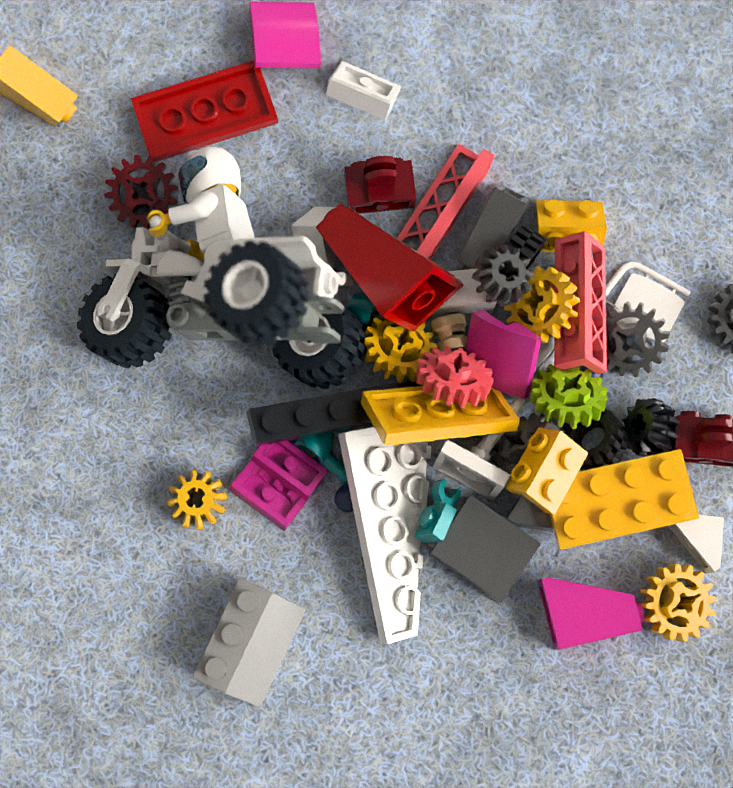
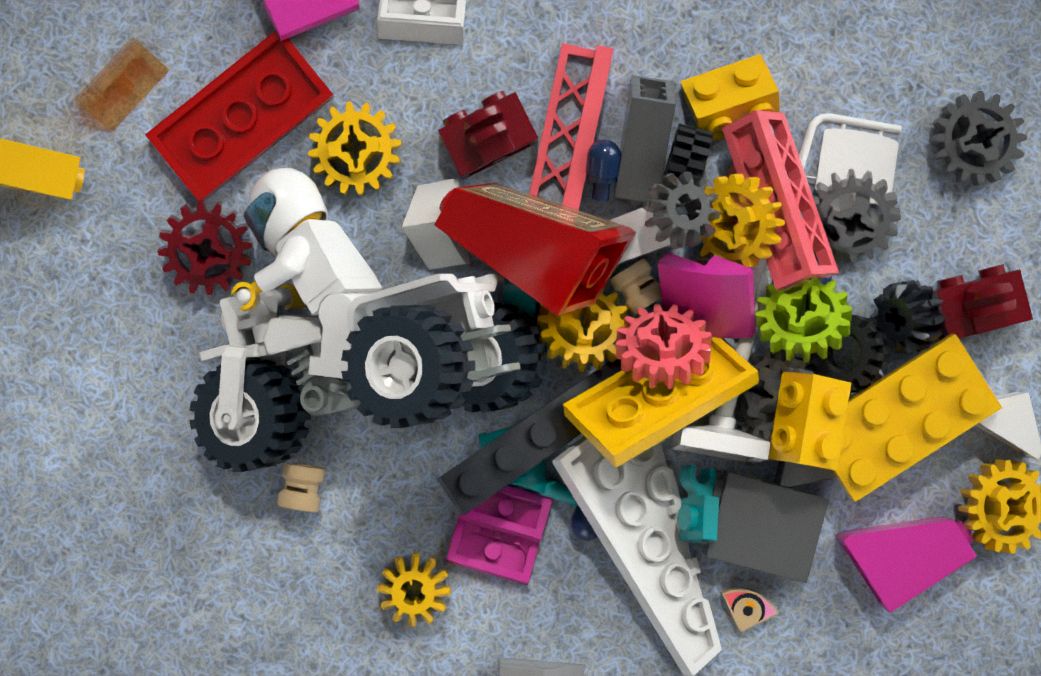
camera: 20 degrees left, 10 degrees up
(129, 61) = (121, 84): none -> clear orange slope
(146, 384) = (304, 477): none -> tan wheel
(291, 166) = (375, 146): none -> yellow gear
(449, 610) = (748, 607): none -> tile
(456, 235) = (603, 167): none -> dark blue cylinder

